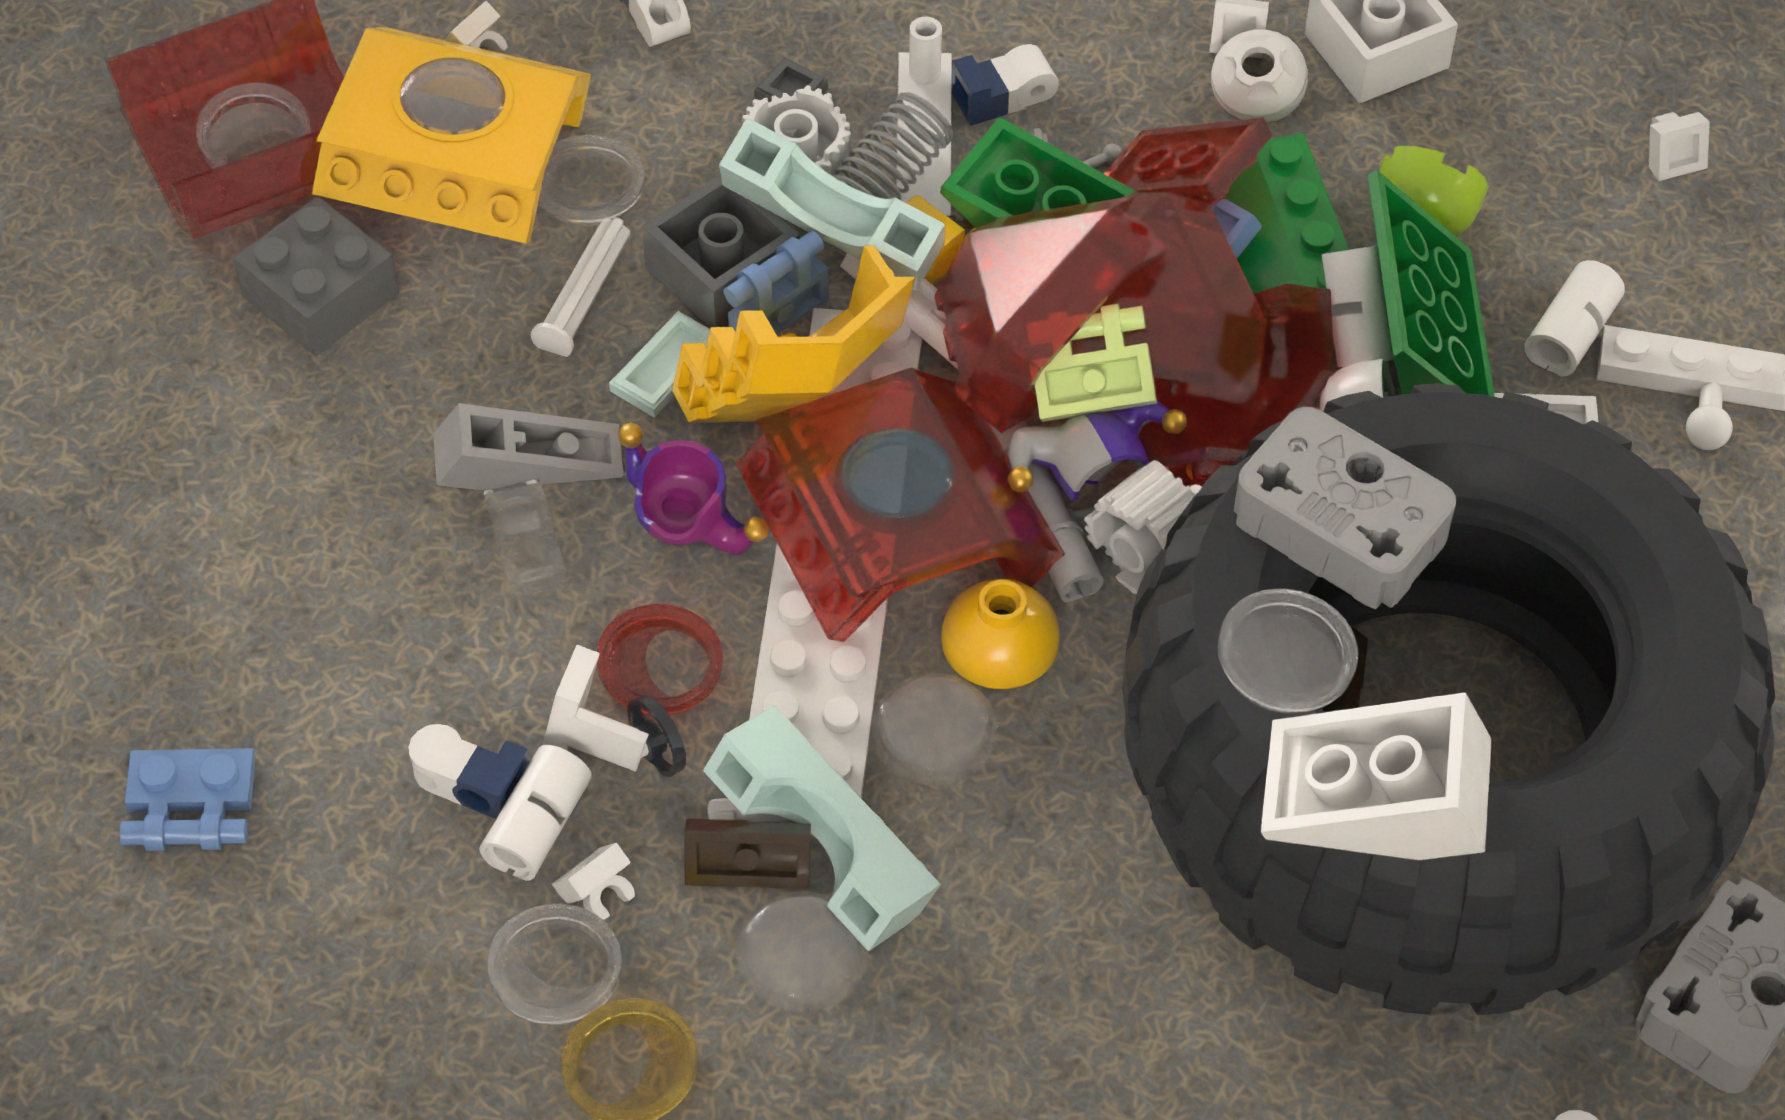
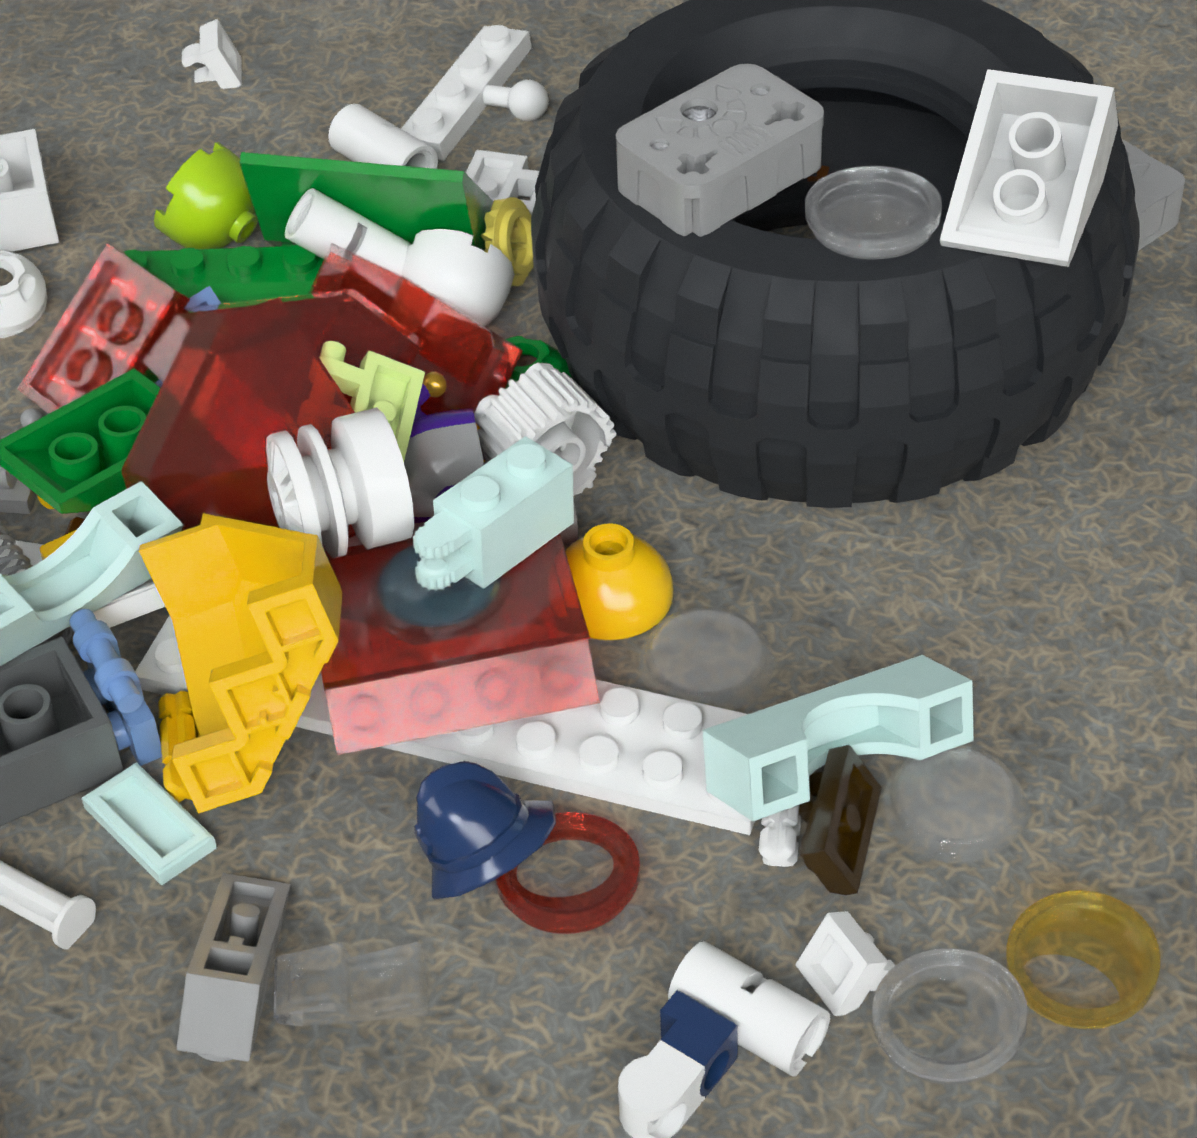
camera: 75 degrees left, 10 degrees down
(606, 738) = (646, 920): white piece -> none
(676, 579) = (475, 827): none -> dark blue piece
(684, 495) = (359, 809): magenta piece -> none
(946, 357) = (352, 483): none -> white wheel
(947, 483) = (495, 517): none -> light aqua hinge

